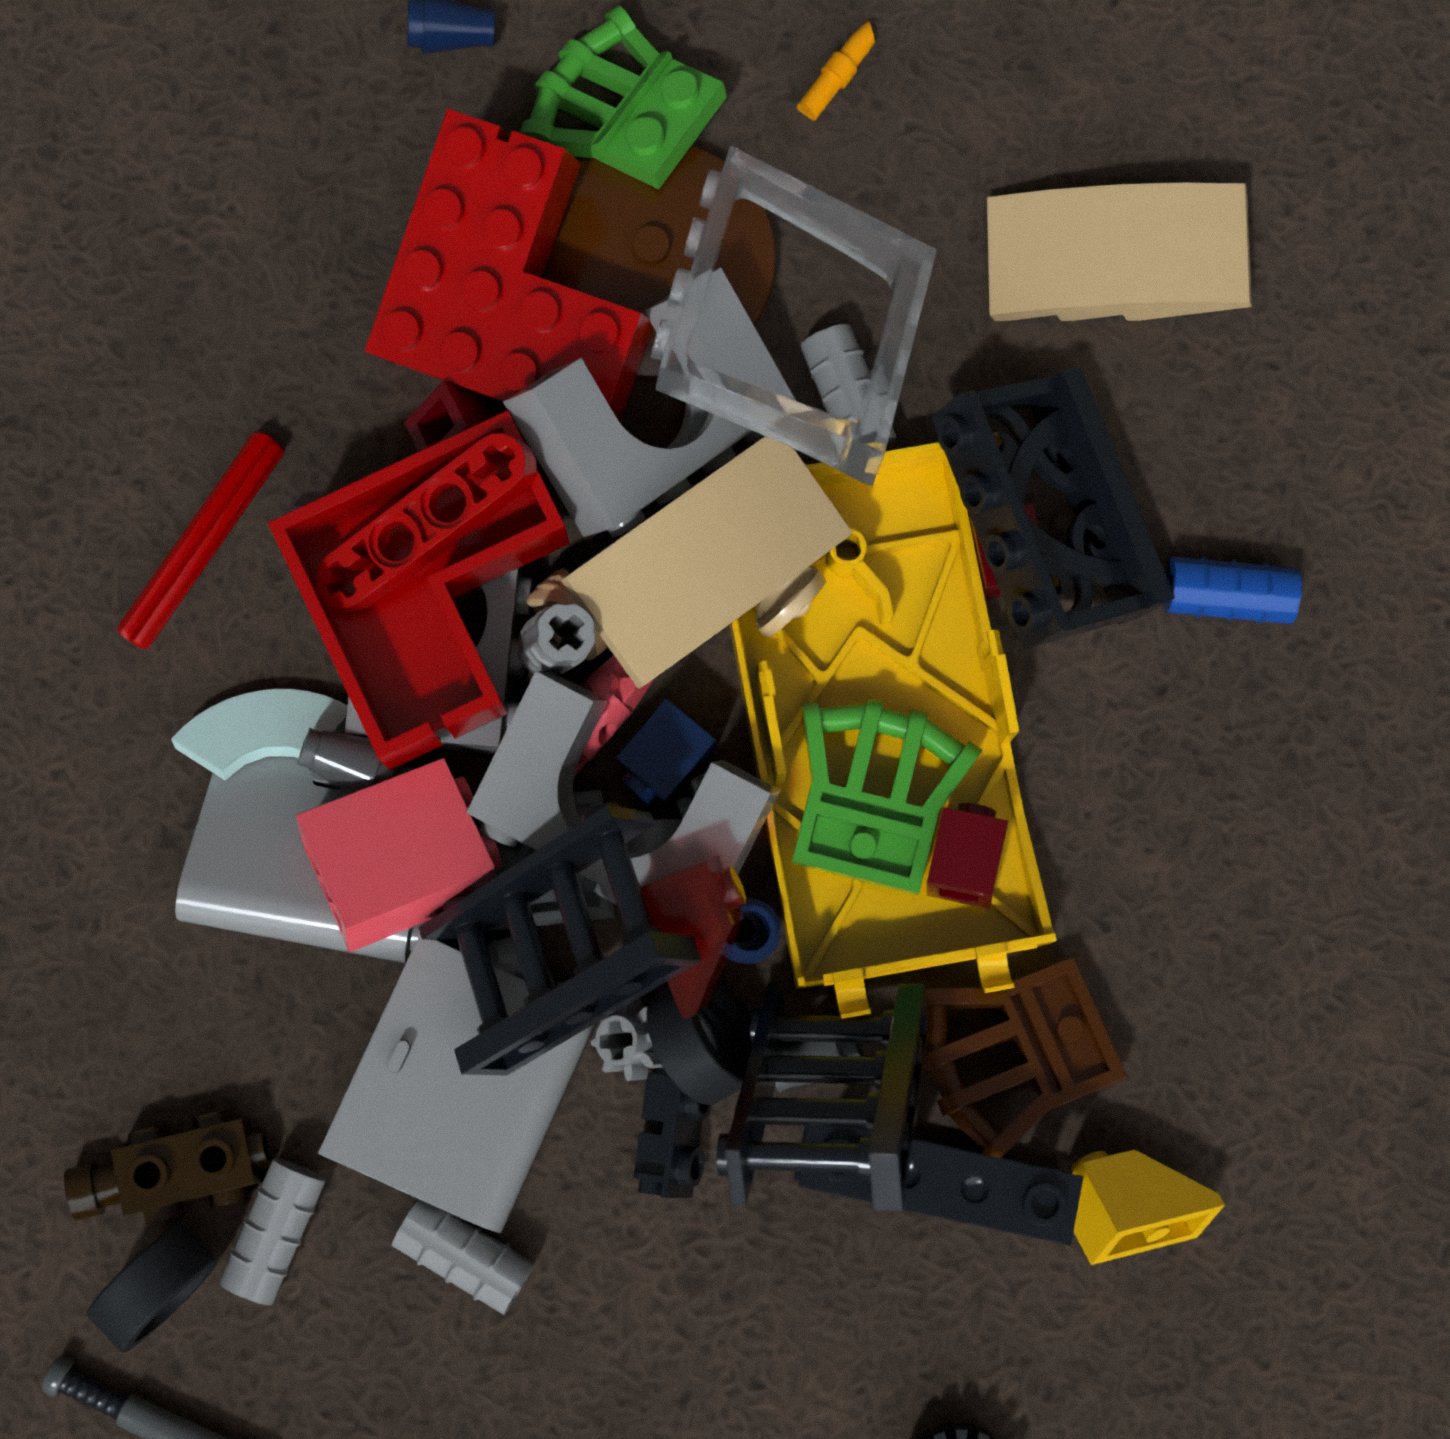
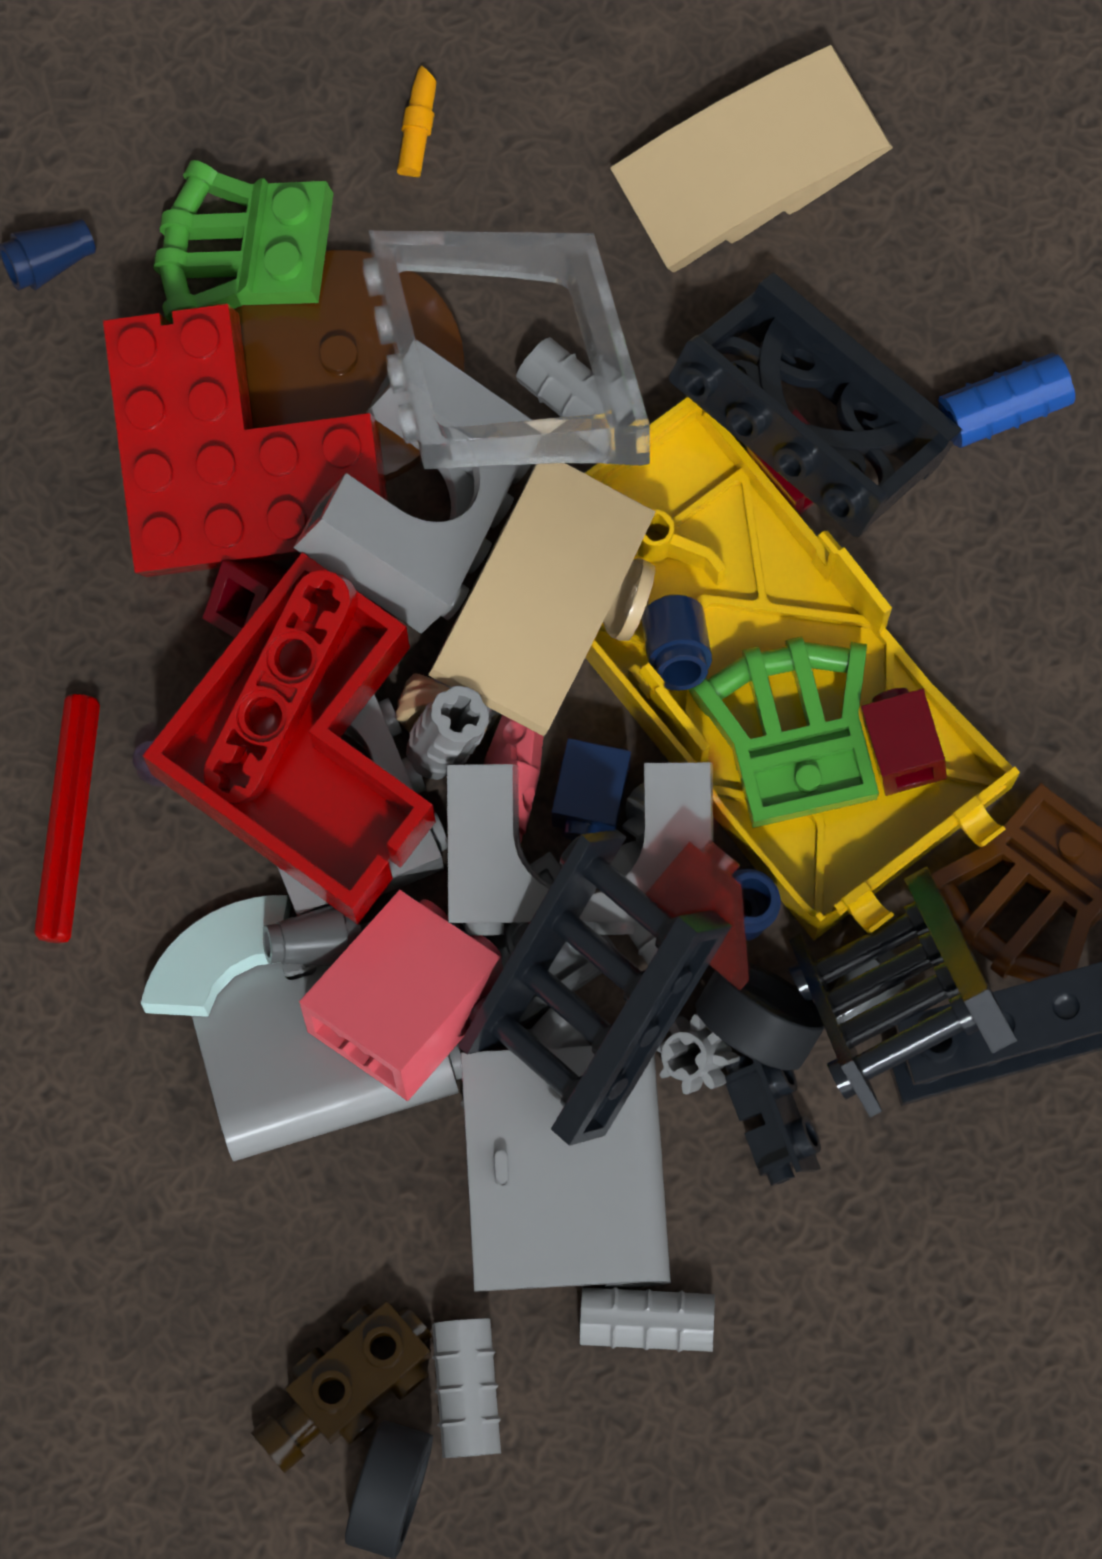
camera: 25 degrees left, 5 degrees down
(811, 660) = (677, 641): none -> dark blue brick

